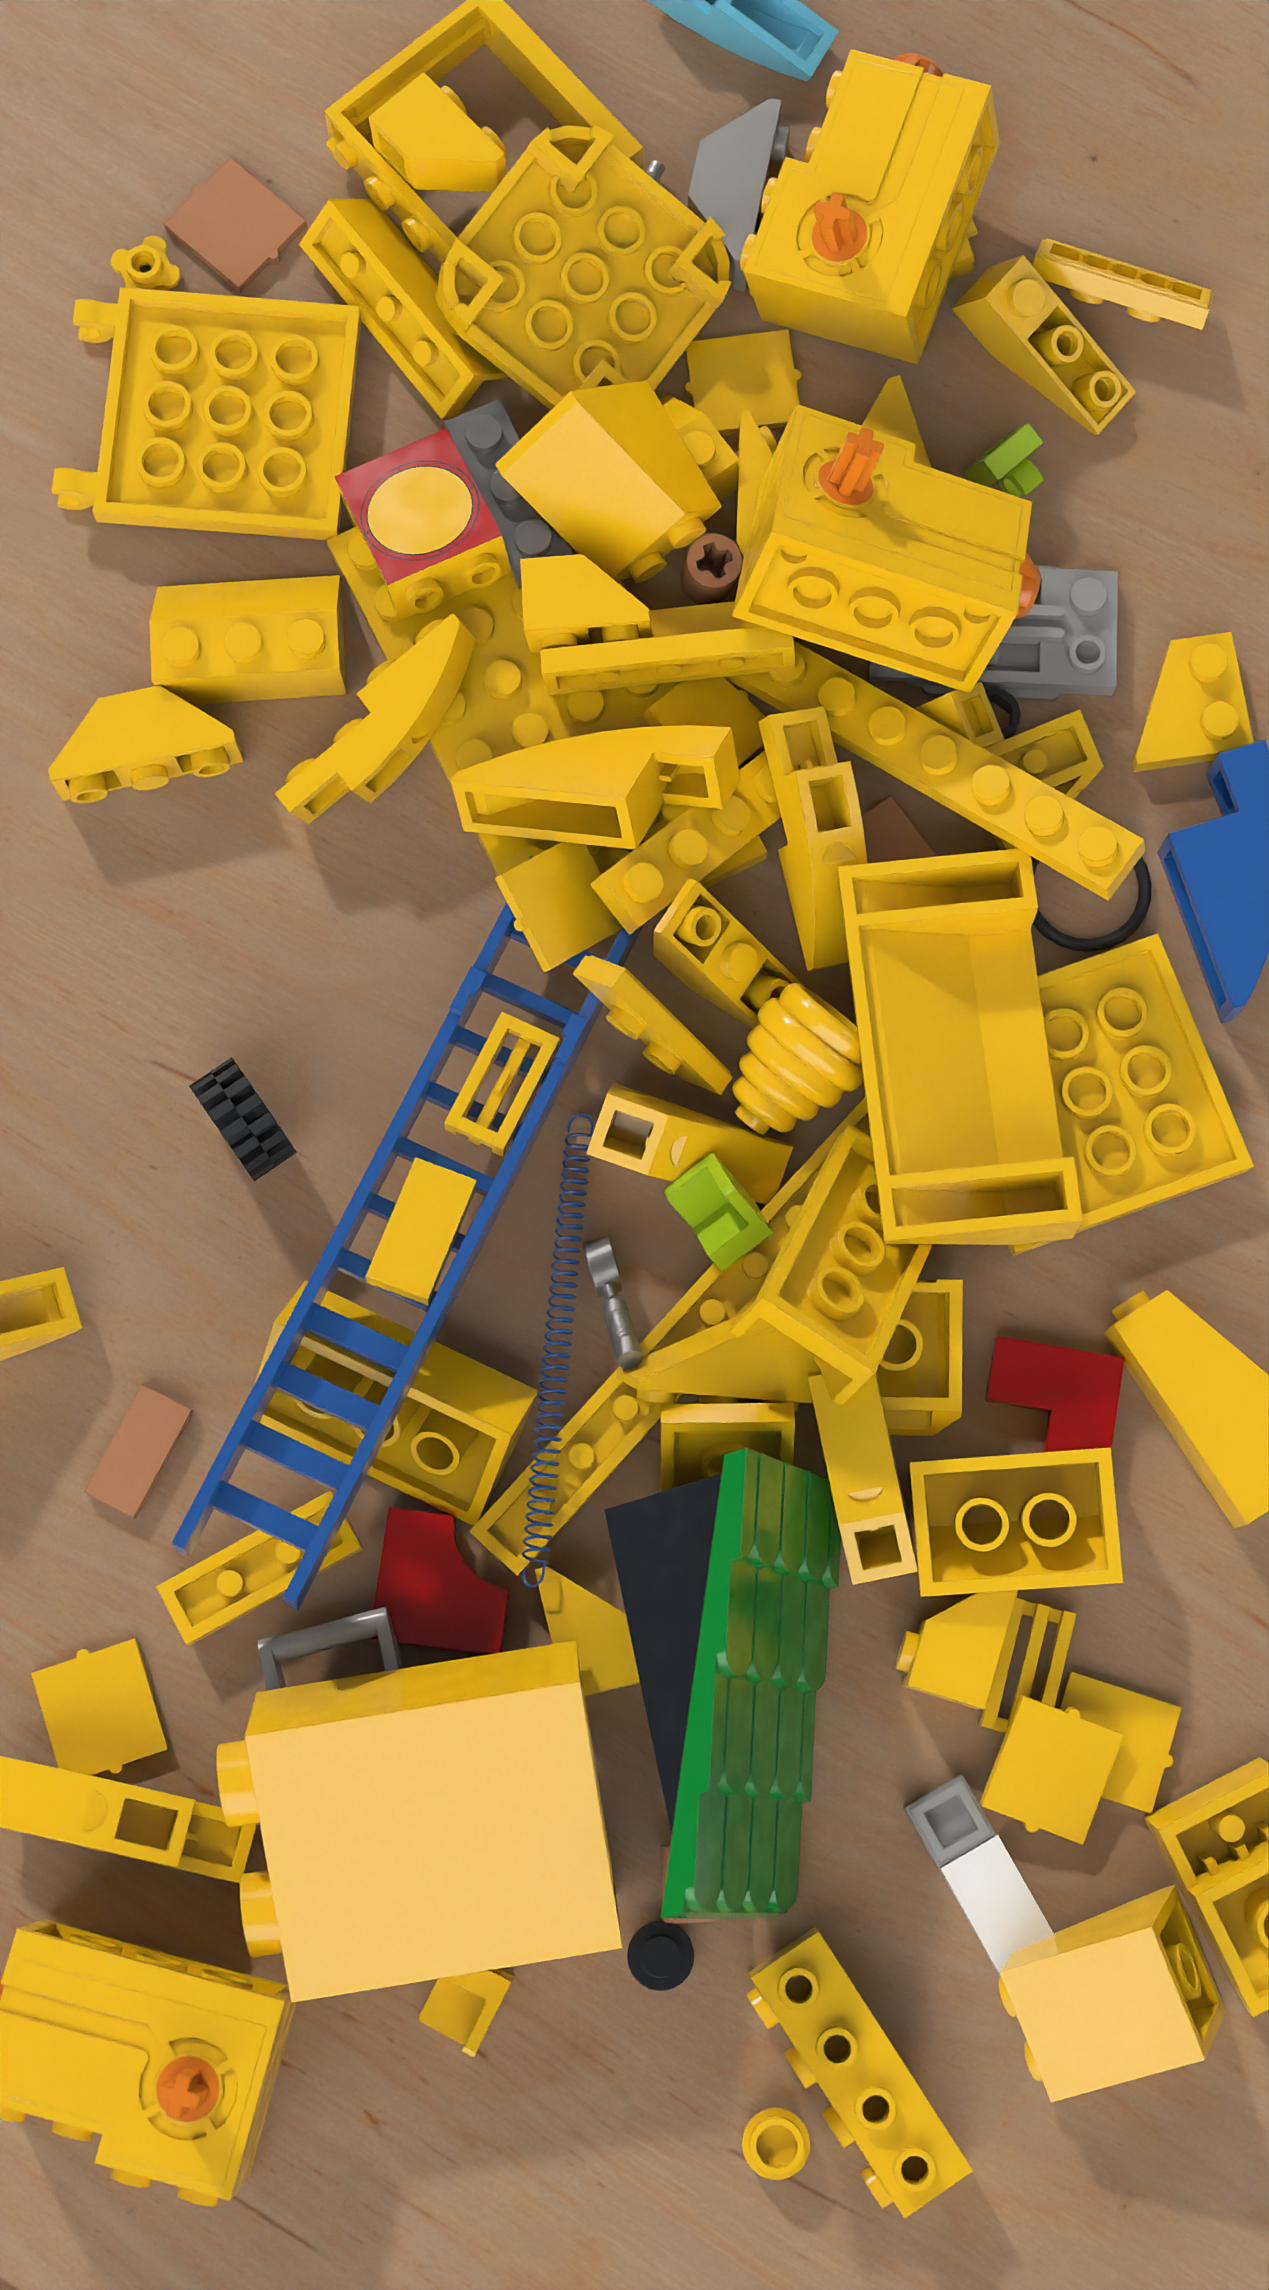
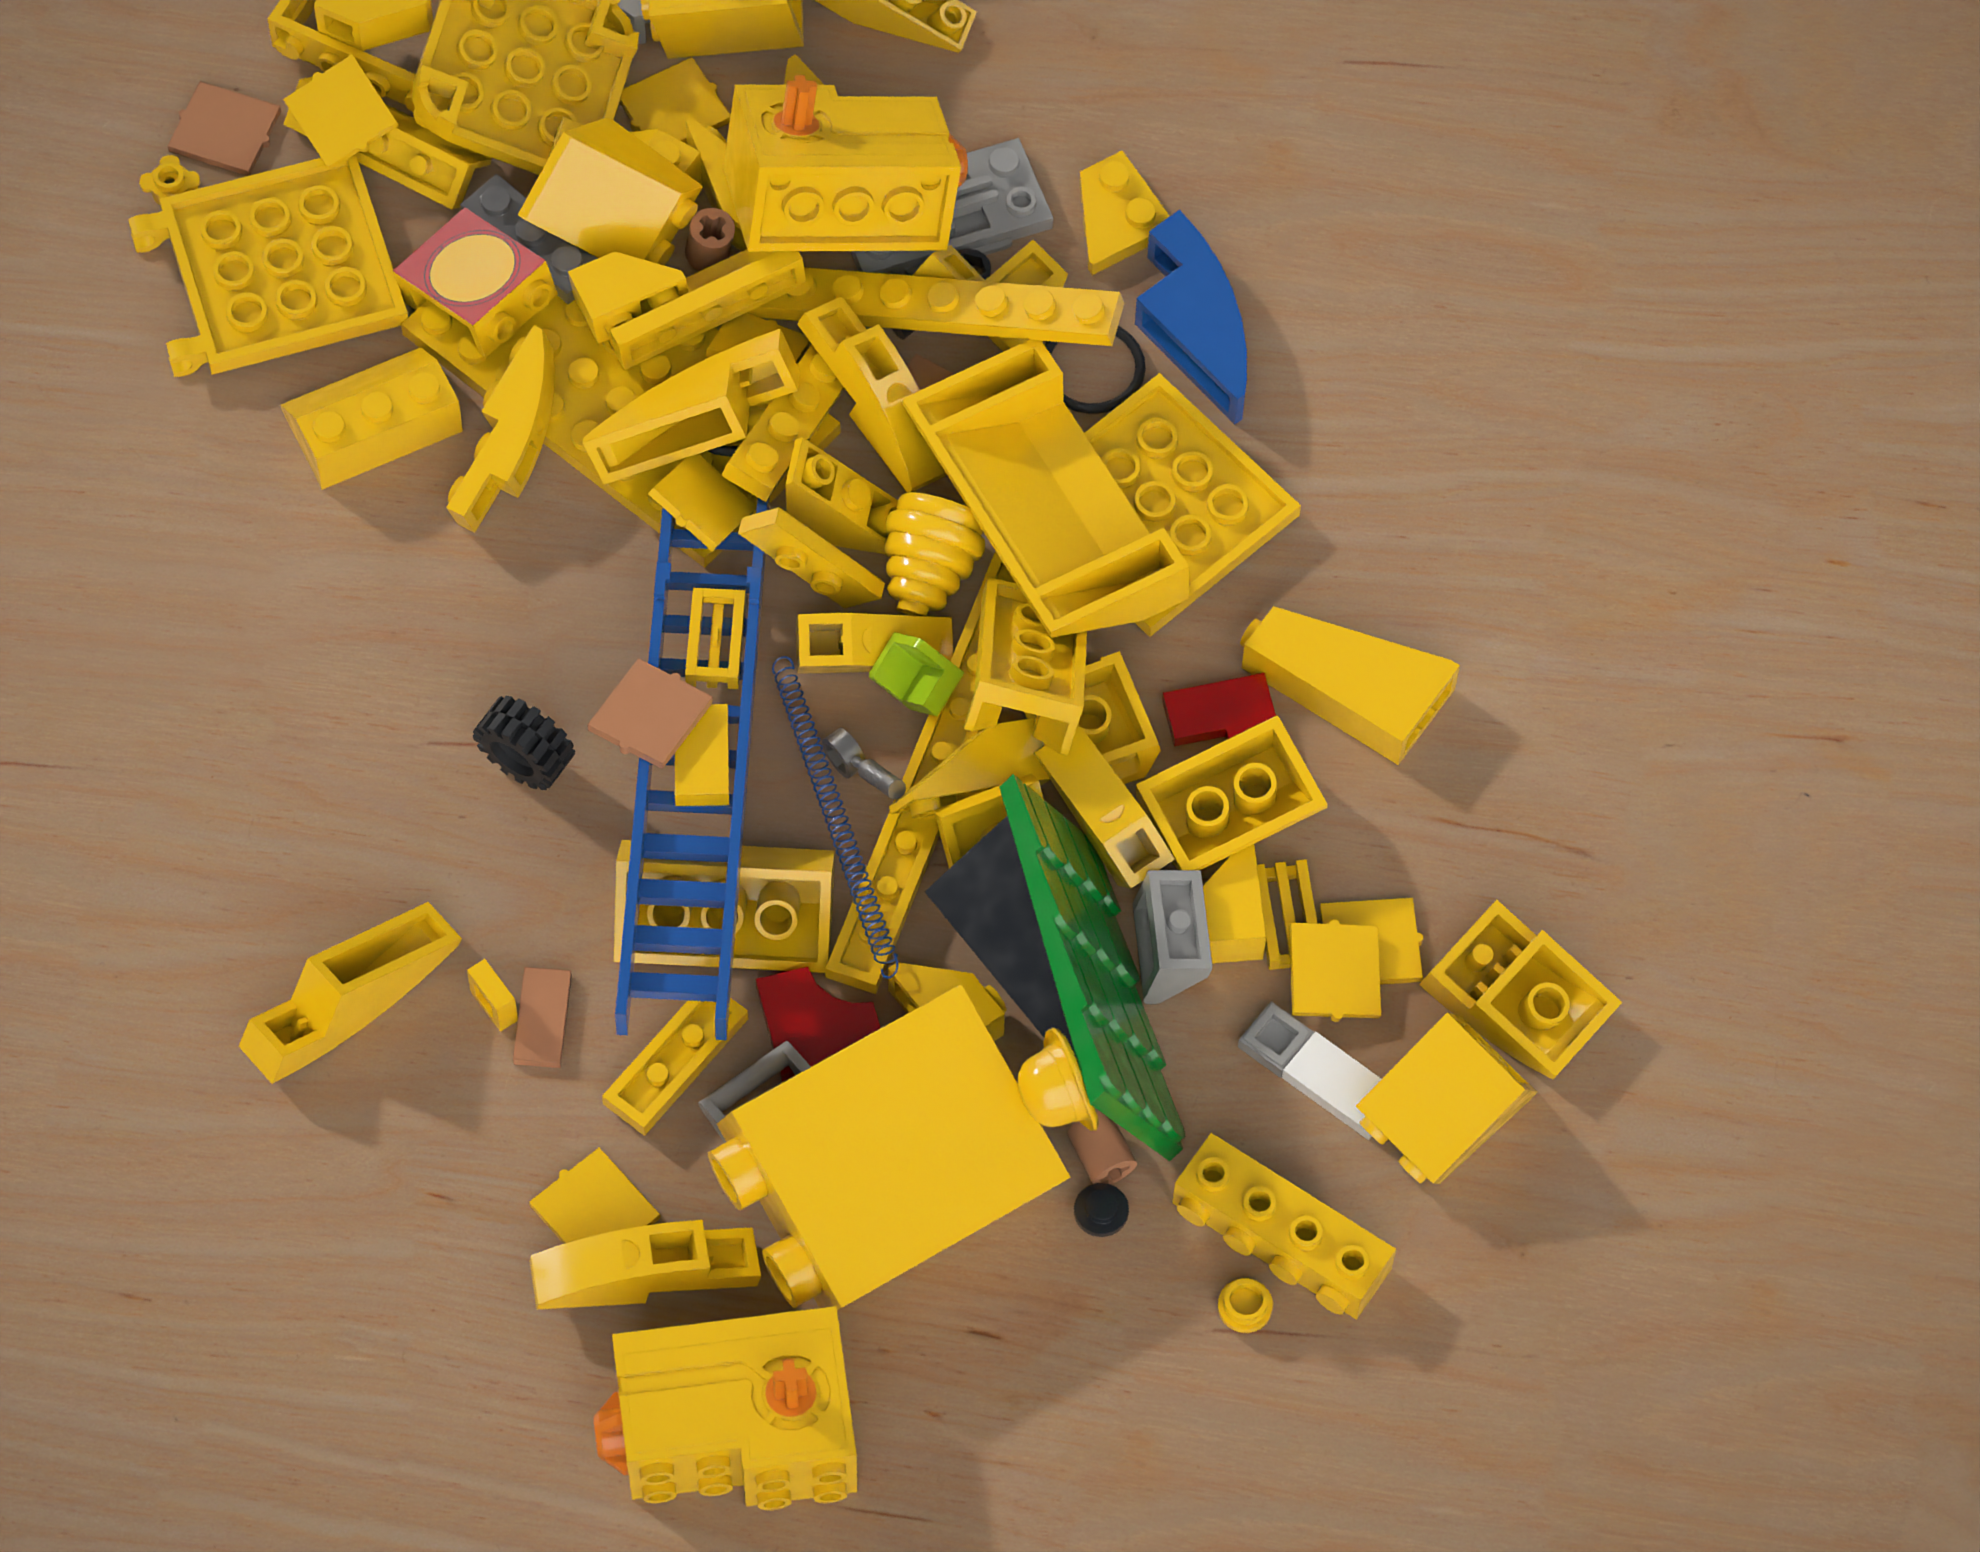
camera: 25 degrees left, 15 degrees down
(88, 1409) = (492, 995): none -> yellow tile
(141, 743) = (323, 514): yellow slope -> none
(357, 257) = (340, 112): none -> yellow piece
(379, 1161) = (650, 713): none -> nougat piece
(466, 2006) = (967, 1292): yellow panel -> none
(635, 1851) = (1054, 1085): none -> yellow hat
(879, 1657) = (1171, 933): none -> light grey tile
(1008, 463) = (903, 82): lime tile -> none

